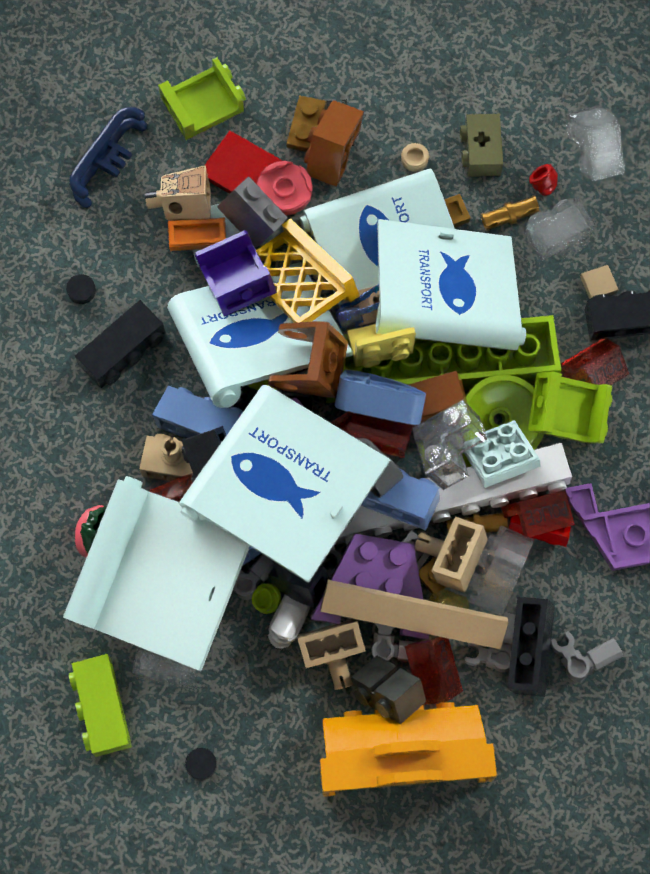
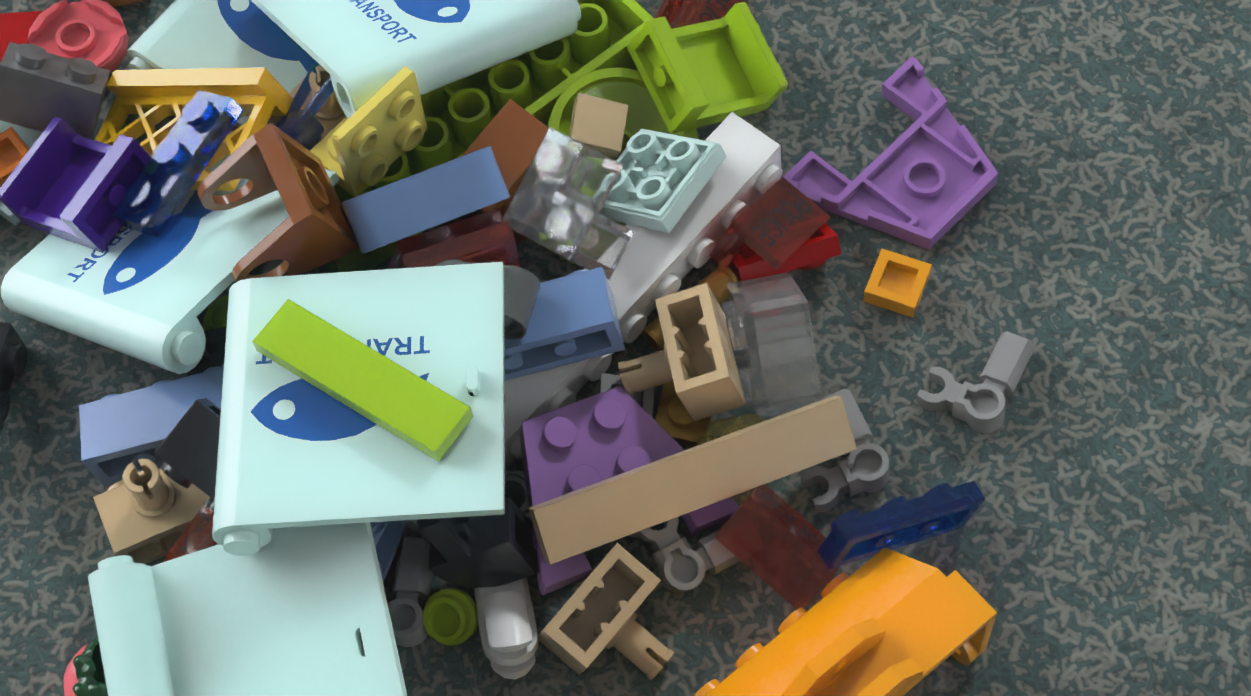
camera: 30 degrees left, 10 degrees down
(284, 296) = (177, 163): none -> clear blue plate
(288, 476) = (363, 379): none -> lime tile
(390, 696) = (755, 618): pearl dark grey piece -> none
(493, 405) = (599, 124): none -> tan tile
(493, 698) = (900, 523): none -> clear blue plate
(531, 646) = (896, 414): black brick -> none
(583, 578) = (897, 283): none -> light orange plate

